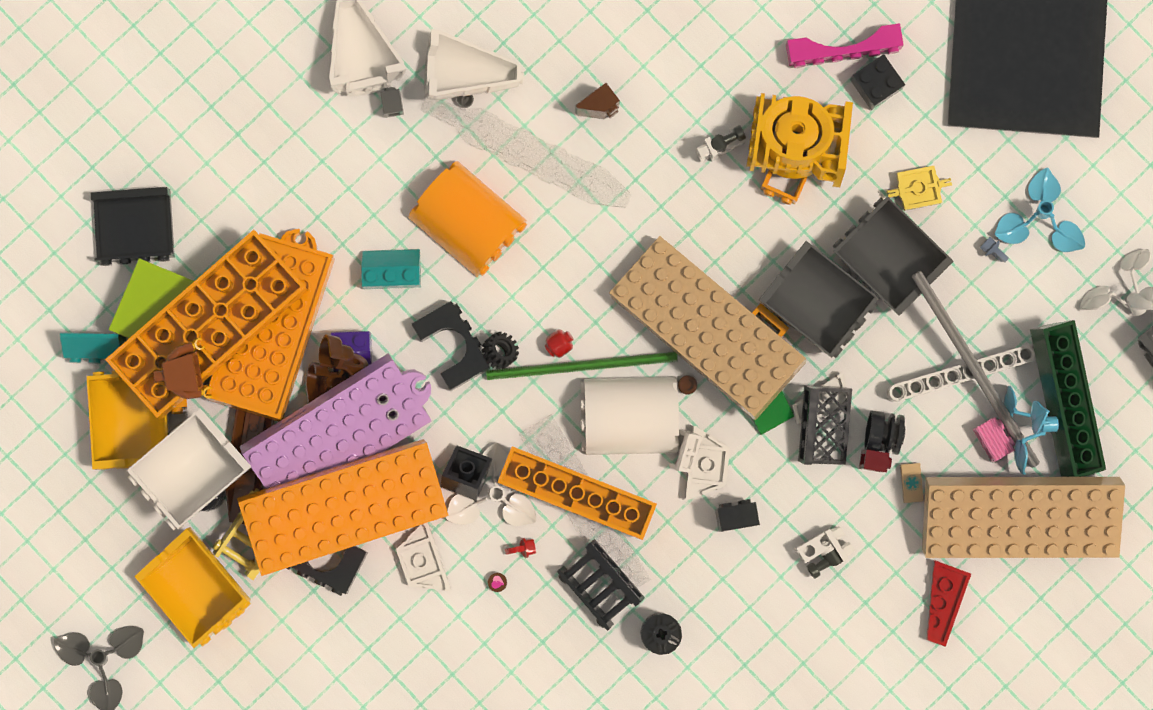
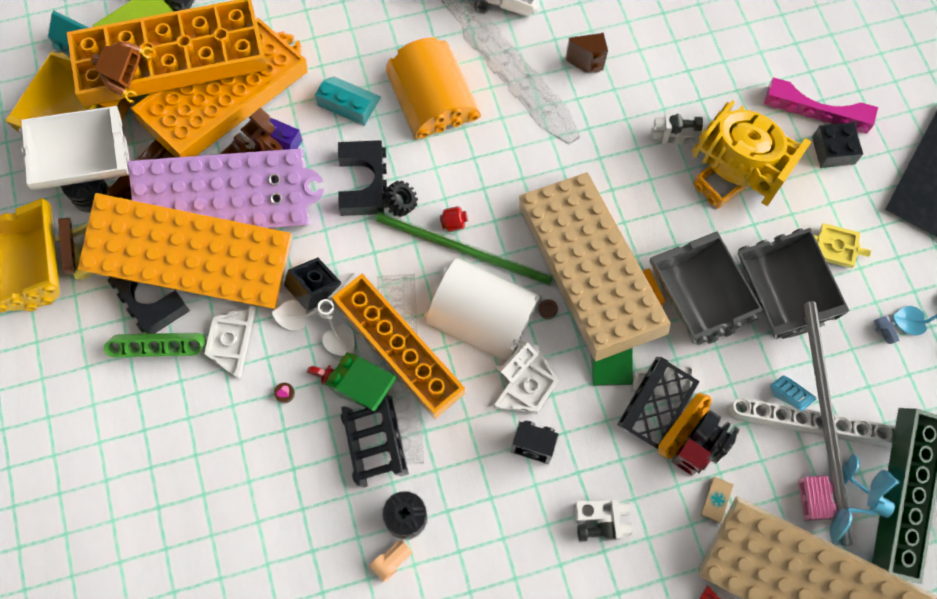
camera: 30 degrees right, 15 degrees down
(232, 557) = (67, 245): none -> reddish brown beam
(353, 603) = (147, 349): none -> bright green beam
(562, 541) = (360, 381): none -> green slope
(666, 679) = (386, 564): none -> light nougat piece
(856, 432) = (685, 425): none -> light orange beam
(925, 353) = (786, 388): none -> medium azure slope

